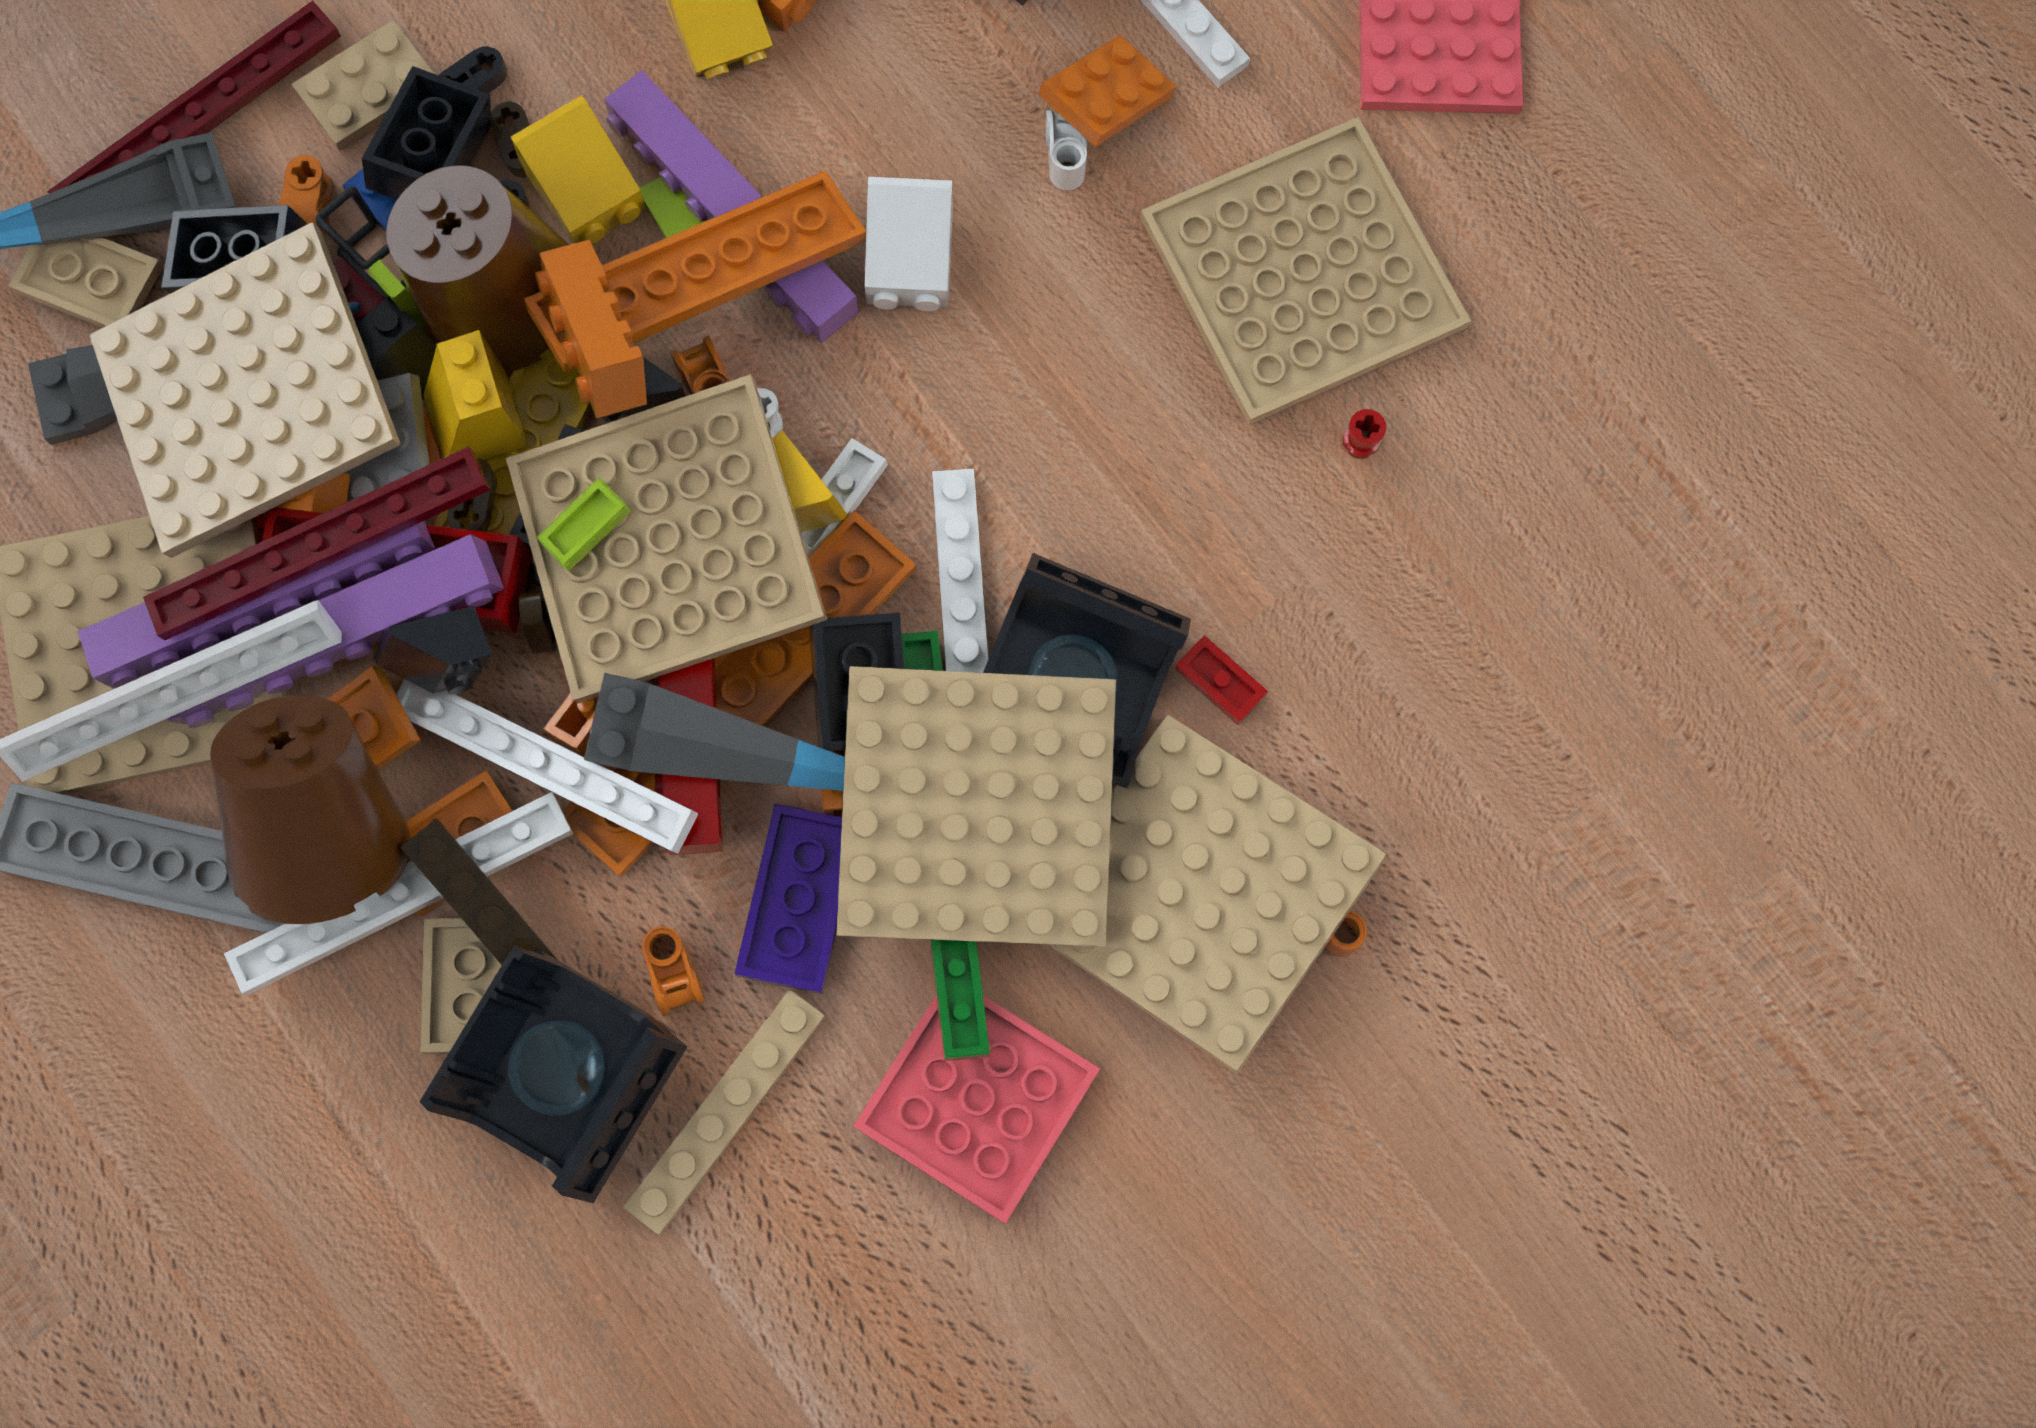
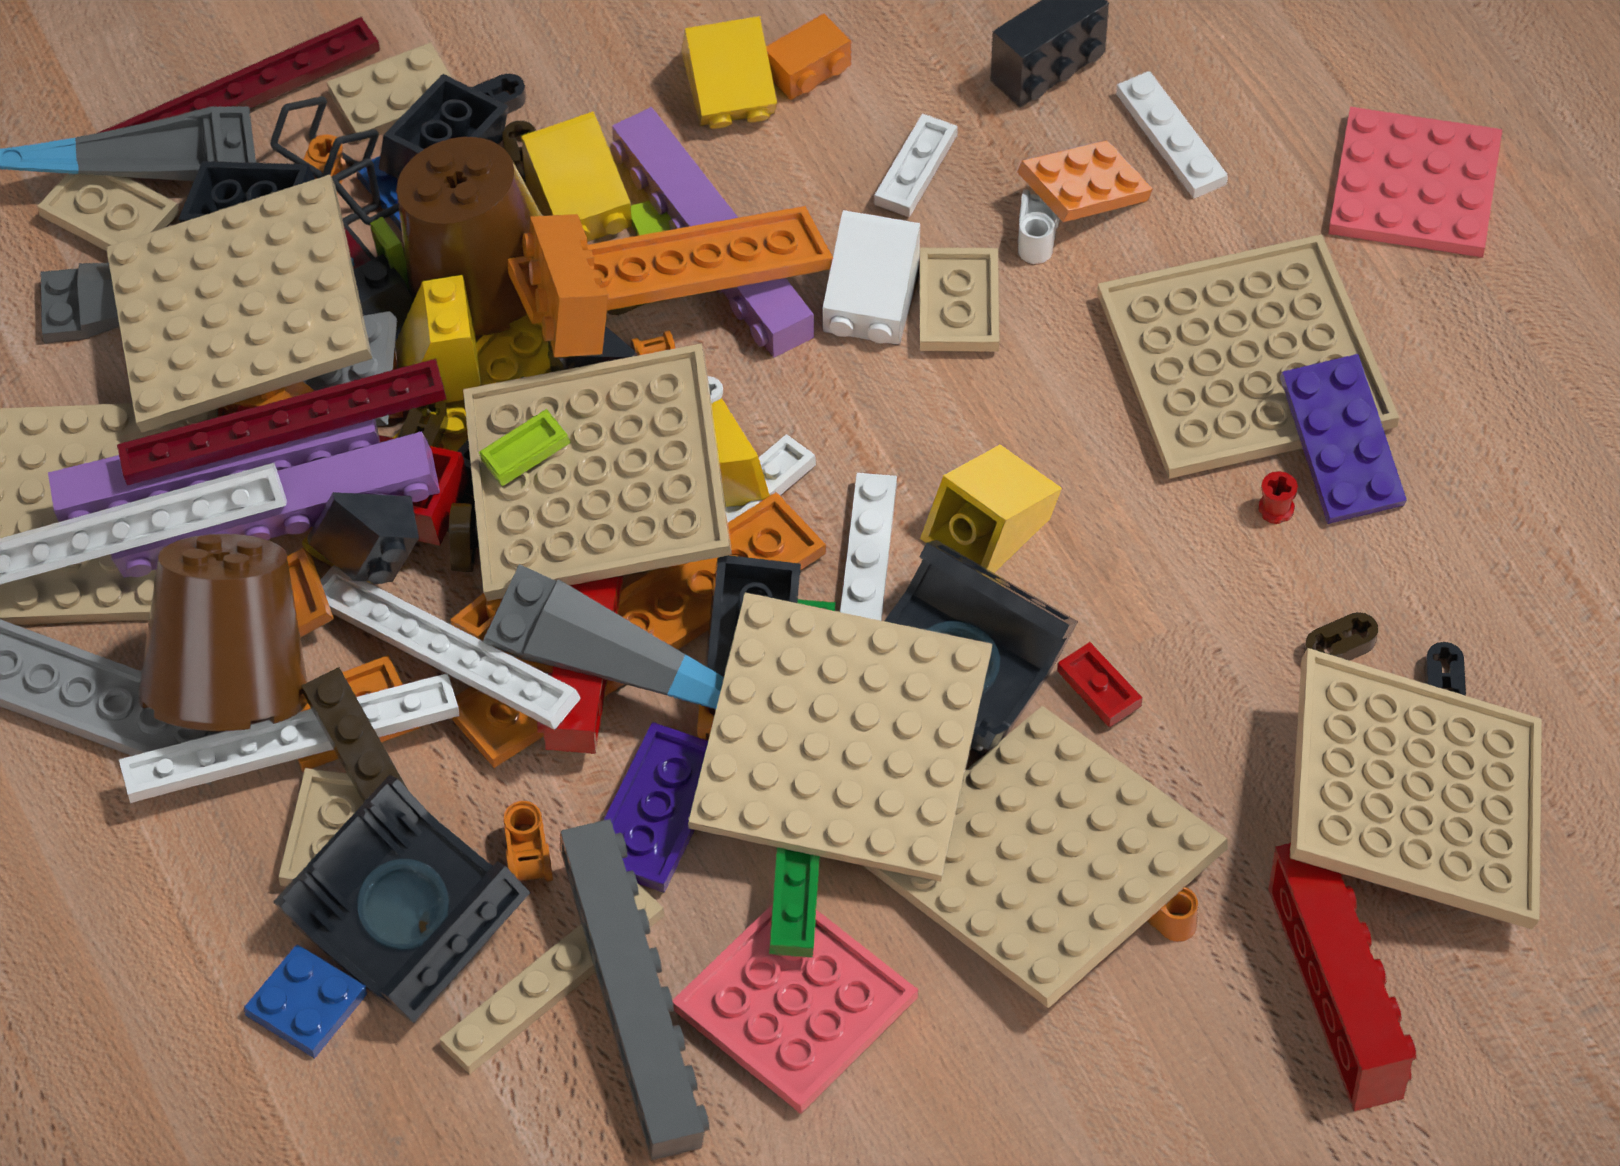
camera: 15 degrees right, 20 degrees down
(289, 117) = (321, 102): none -> black piece
(476, 1184) = (305, 1001): none -> blue plate
(811, 1126) = (632, 990): none -> dark grey brick
(928, 94) = (915, 165): none -> white plate
(1001, 248) = (959, 299): none -> tan plate
(1076, 497) = (990, 507): none -> yellow slope
(1420, 356) = (1343, 438): none -> dark purple plate
(1447, 580) = (1339, 637): none -> dark brown beam
(1522, 982) = (1343, 980): none -> red brick
(1567, 767) = (1418, 789): none -> tan plate
(1572, 614) = (1455, 678): none -> black beam

